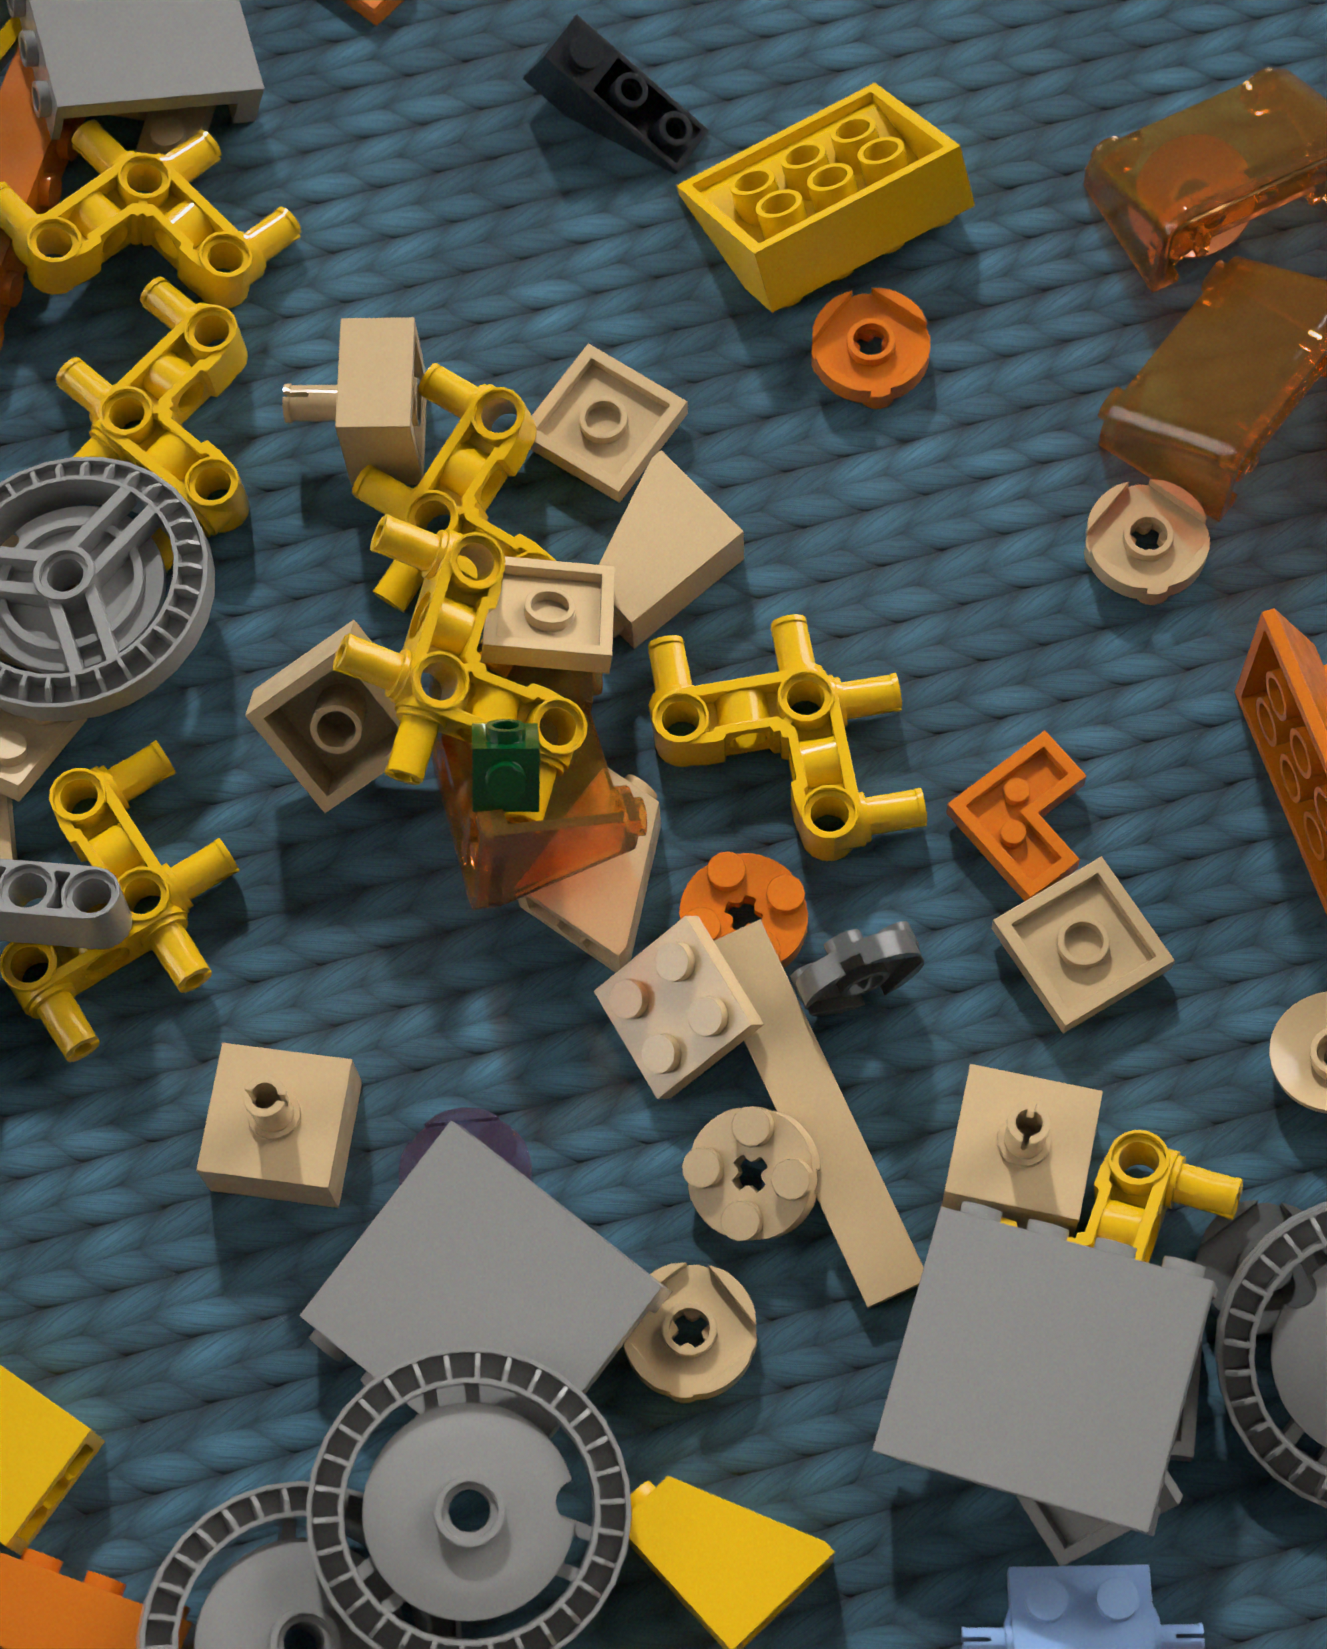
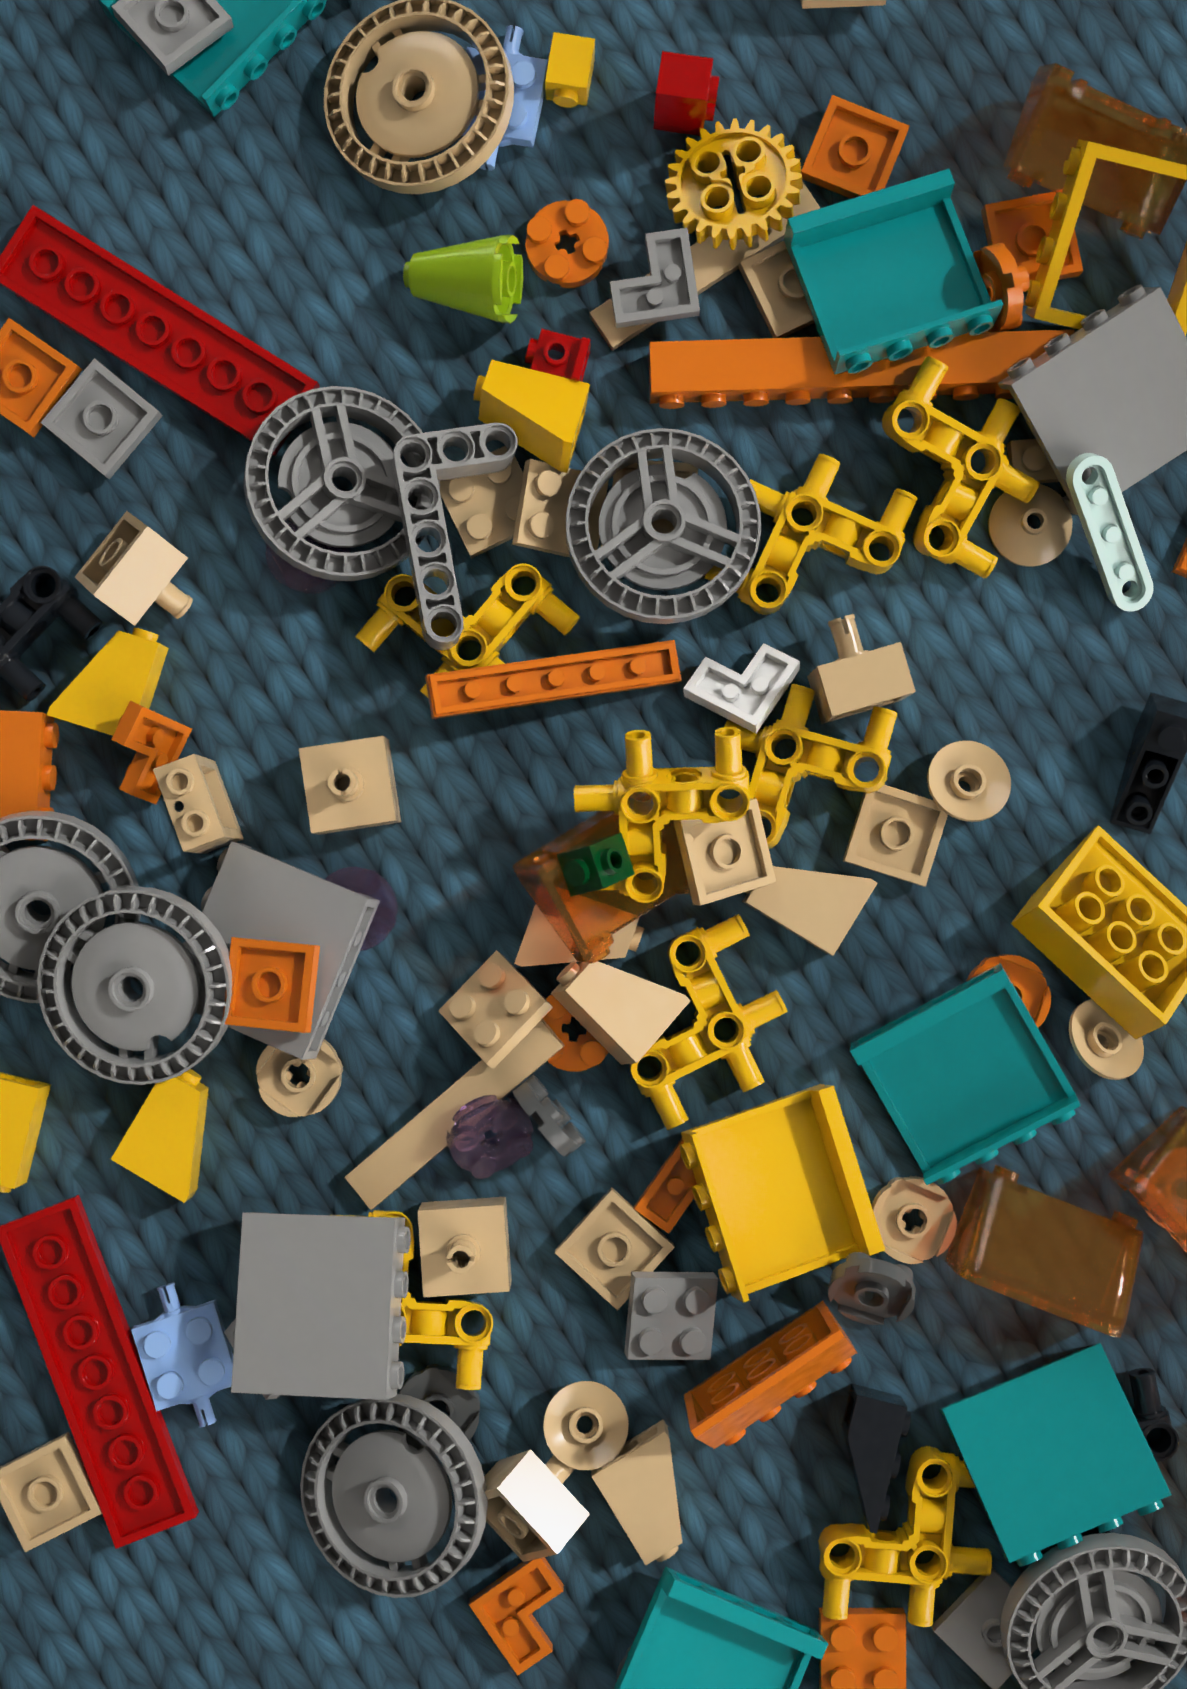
camera: 65 degrees right, 20 degrees up
(108, 1389) = (156, 742): none -> orange plate
(203, 1334) = (207, 813): none -> tan window
(223, 810) = (552, 679): none -> orange tile
(262, 184) = (1019, 541): none -> tan dish
(294, 61) = (1109, 531): none -> light aqua plate
(326, 723) = (603, 718): tan brick -> none
(342, 563) = (744, 697): none -> white plate
(533, 1293) = (272, 984): none -> orange plate
(562, 313) = (980, 769): none -> tan dish
(715, 1170) = (381, 1080): tan plate -> none
(727, 830) = (618, 1007): none -> tan slope
(883, 1043) = (490, 1155): none -> clear purple plate
(962, 417) = (966, 1075): none -> teal panel
(966, 241) = (1103, 1043): none -> tan dish
(1057, 687) = (780, 1190): none -> yellow panel
(1201, 890) = (670, 1315): none -> light grey plate
(1205, 597) = (890, 1284): none -> dark grey plate

